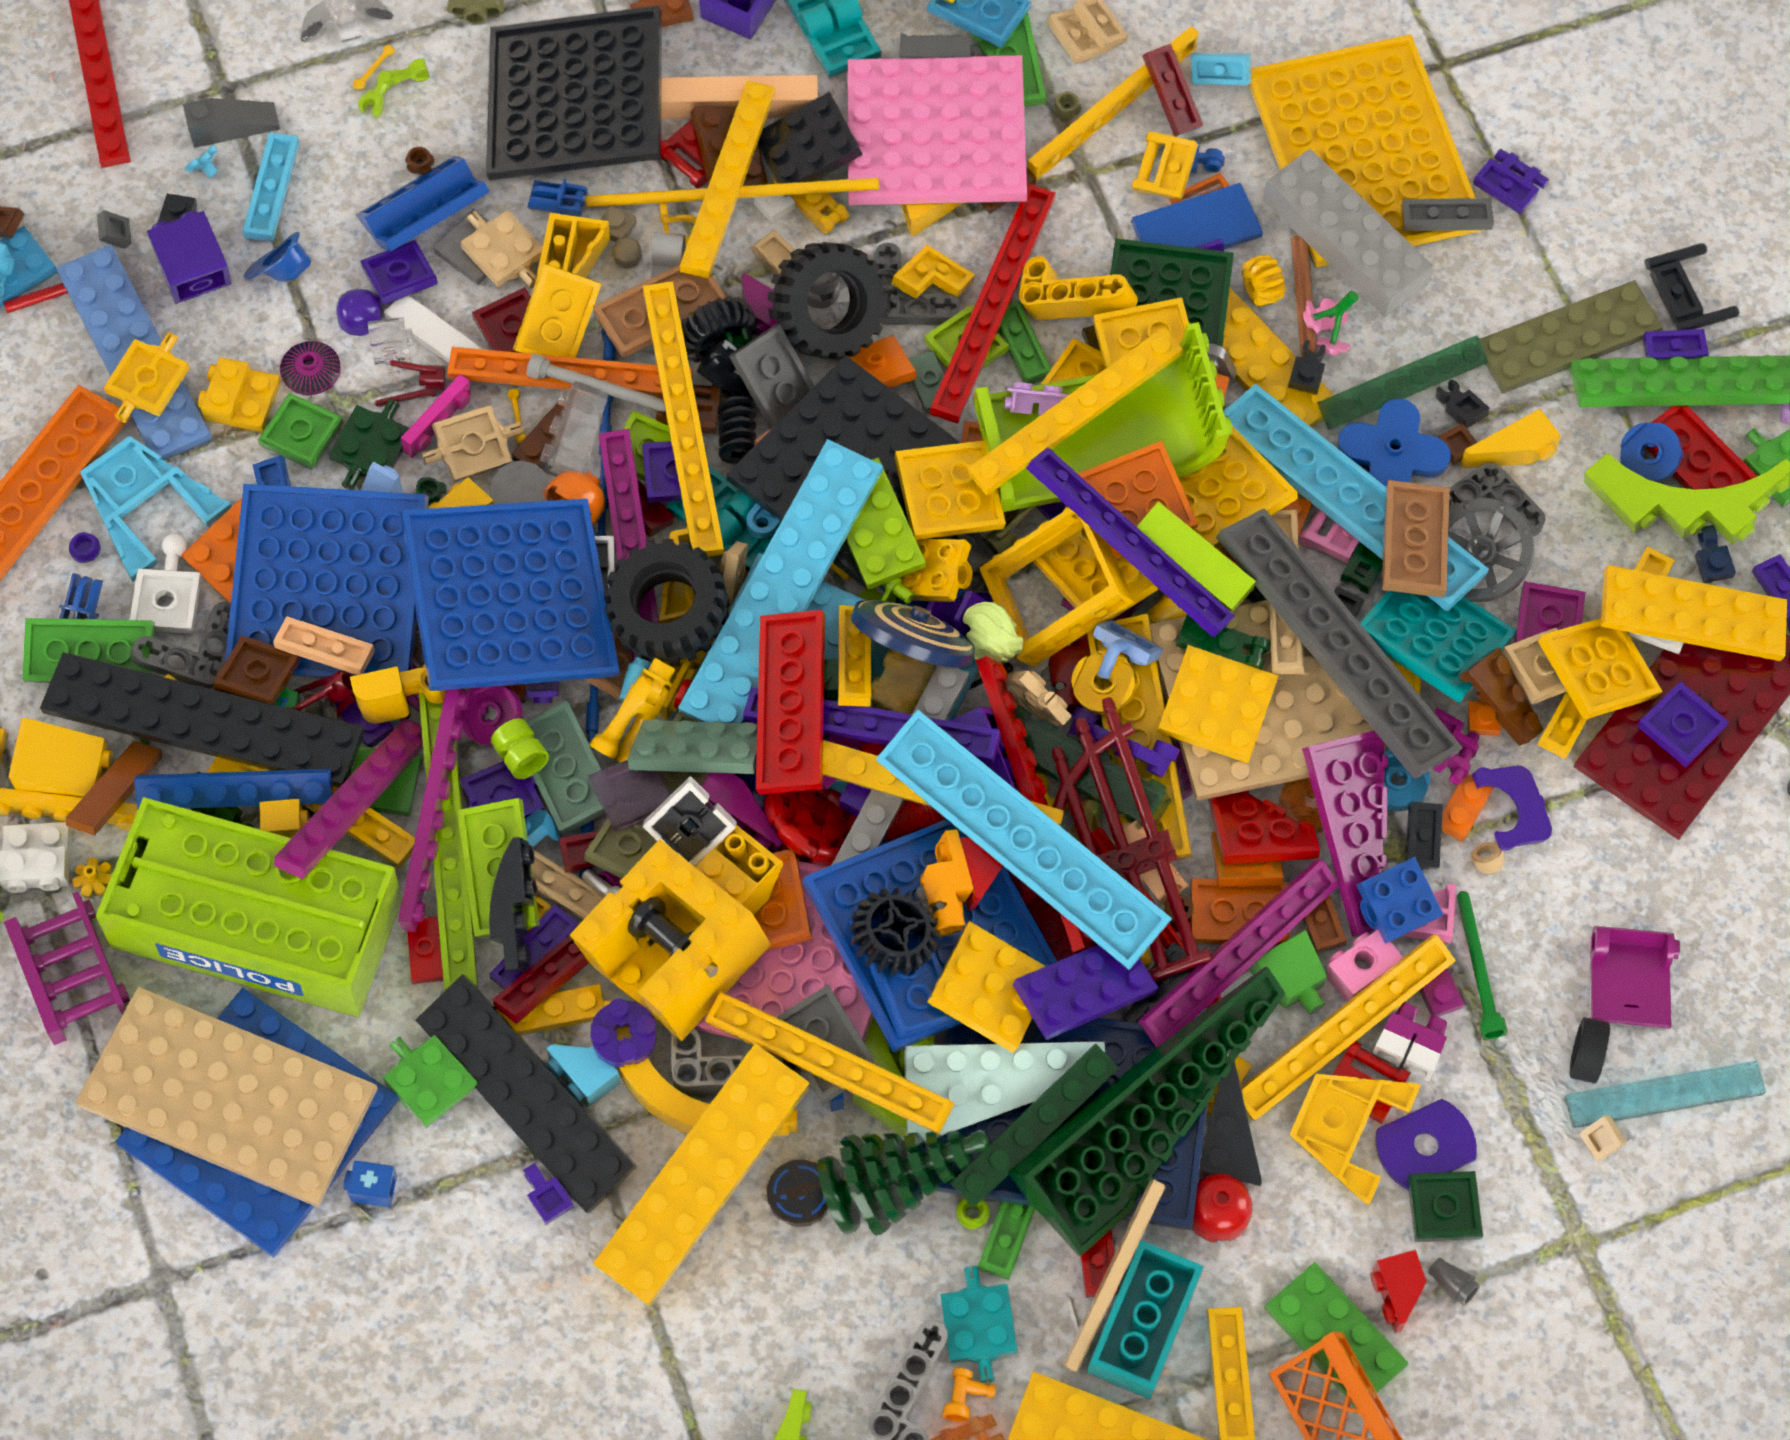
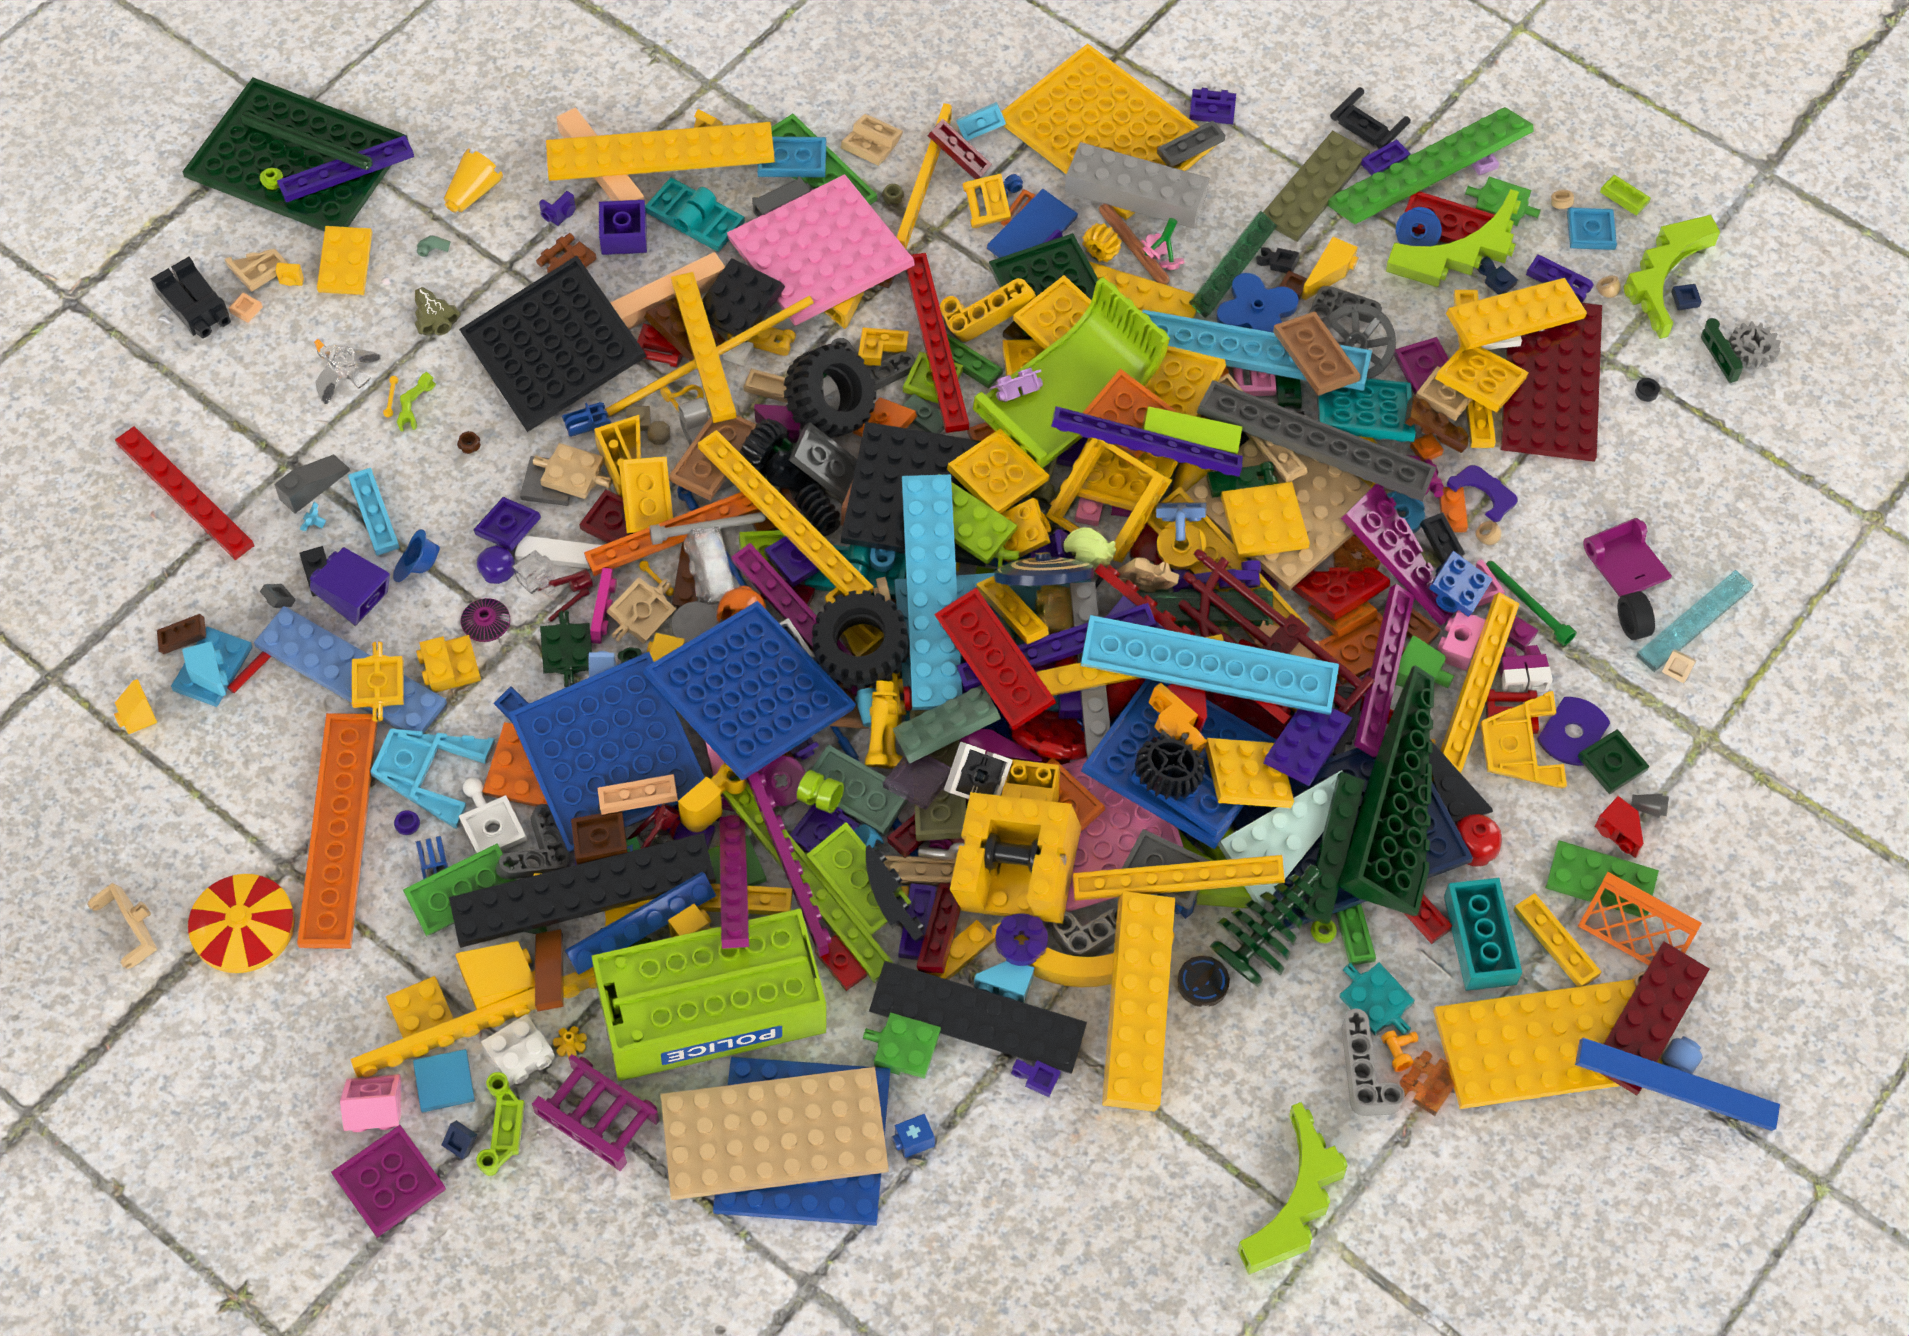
camera: 30 degrees left, 5 degrees down
(300, 431) = (510, 664): bright green plate -> none
(422, 203) = (491, 470): blue slope -> none
(1037, 589) = (1088, 512): none -> bright pink plate
(1075, 410) = (1051, 378): yellow plate -> none
(1113, 1275) = (1446, 916): tan tile -> none
(1308, 370) = (1169, 286): black plate -> none
(1683, 724) = (1554, 386): dark purple plate -> none

